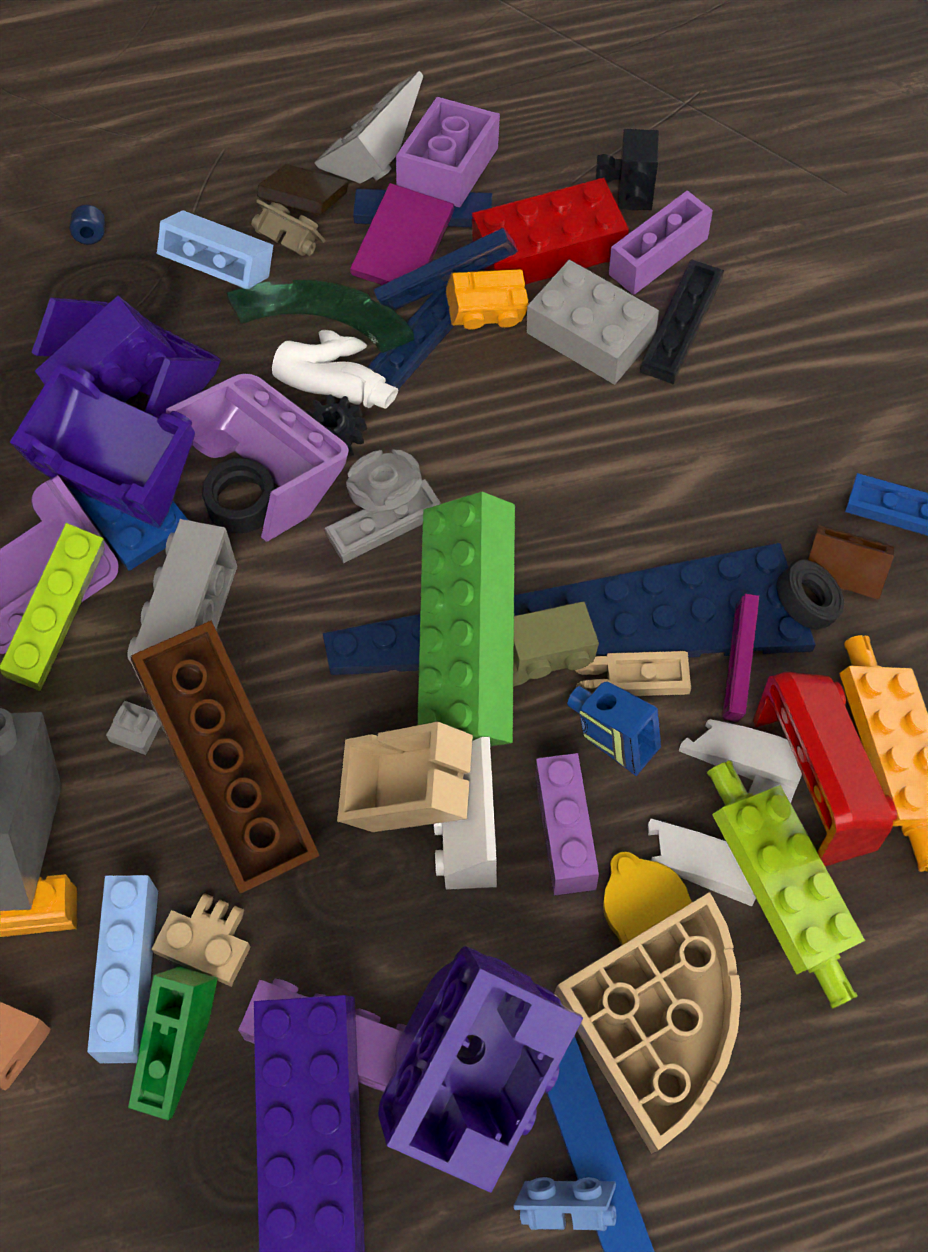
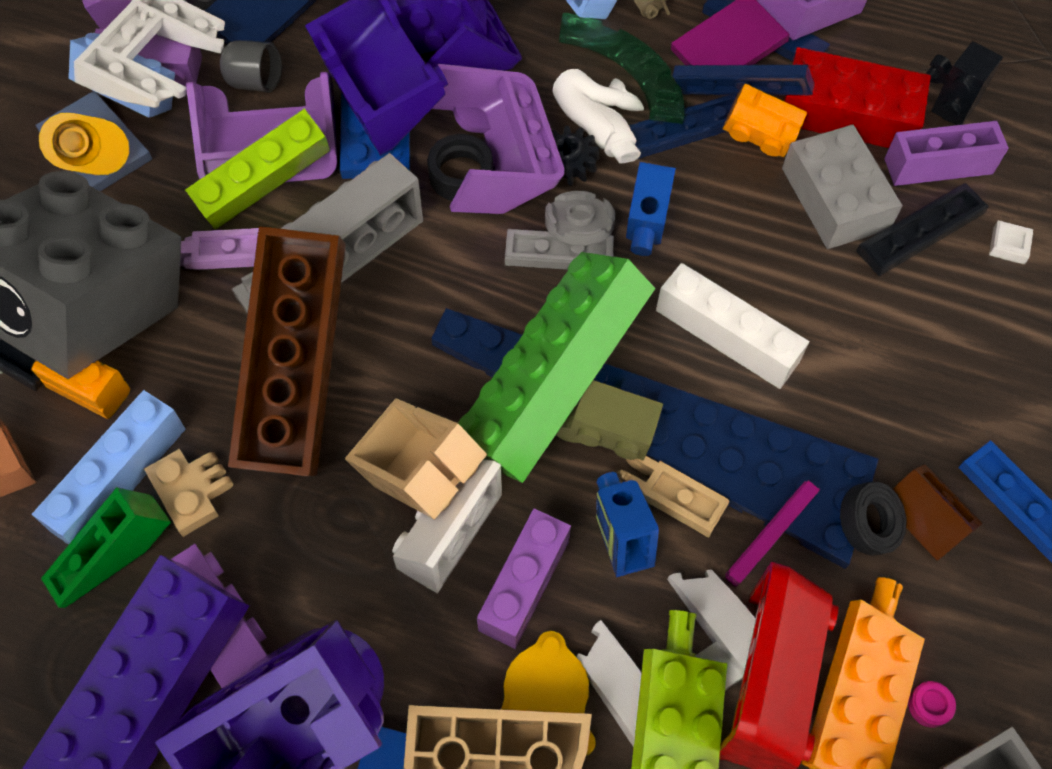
camera: 30 degrees right, 0 degrees up
(75, 699) = (219, 249): none -> lavender hinge
(443, 434) = (649, 207): none -> blue torso
(586, 500) = (731, 325): none -> white brick
(761, 291) = (1011, 242): none -> white tile

